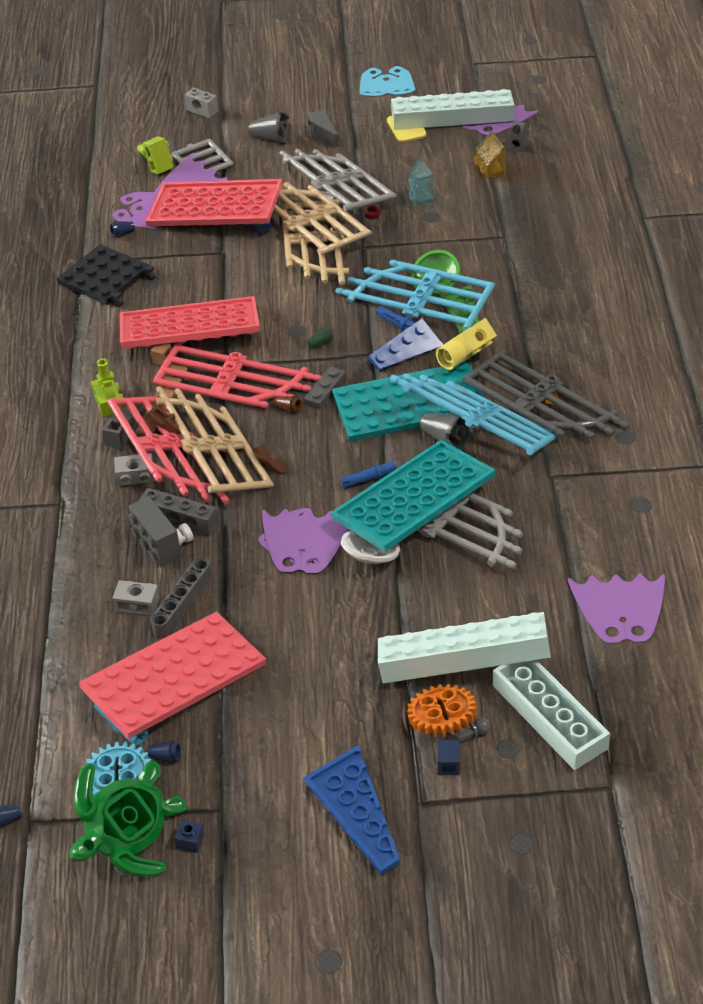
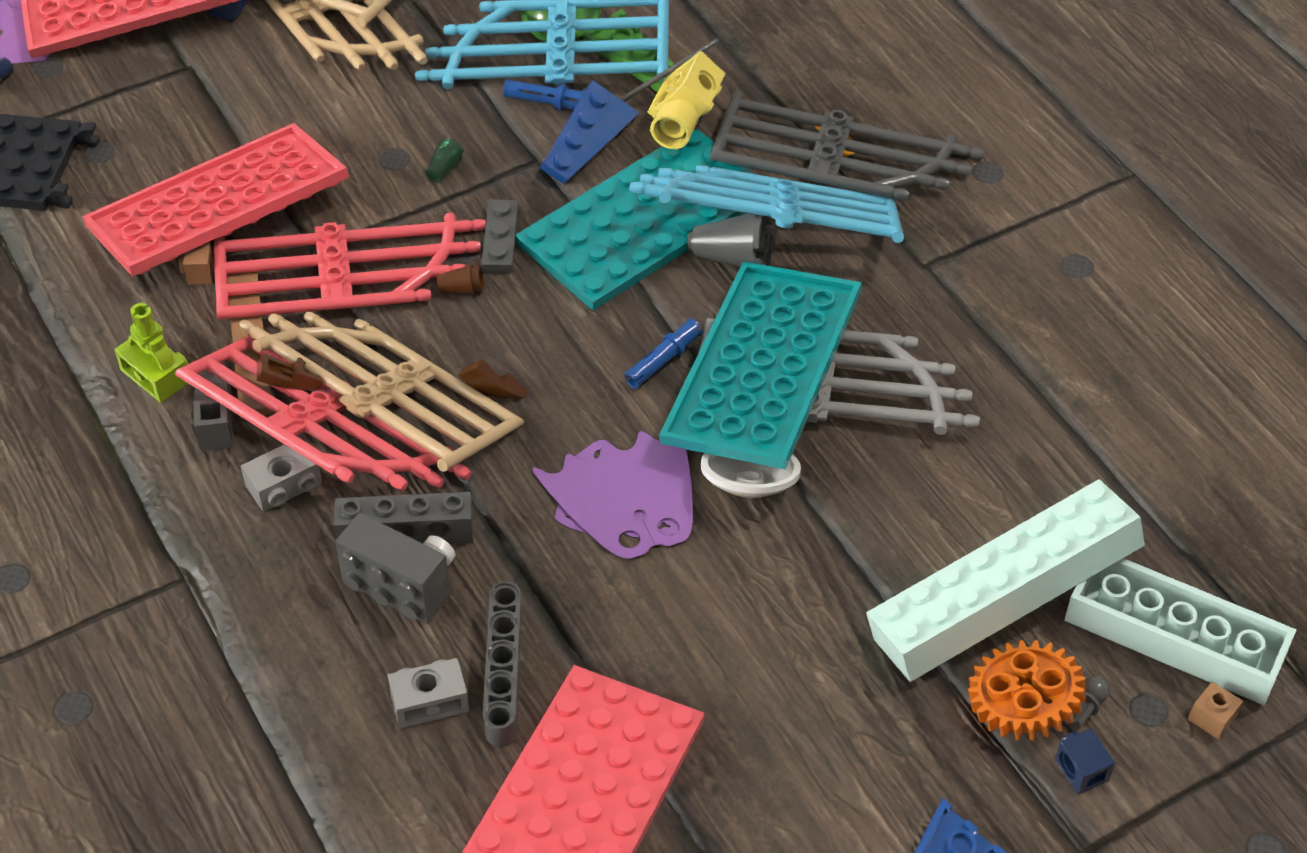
camera: 30 degrees left, 5 degrees up
(466, 326) = (666, 72): none -> dark grey piece
(542, 761) = (1215, 710): none -> medium nougat plate
(608, 602) = (1143, 419): medium lavender piece -> none

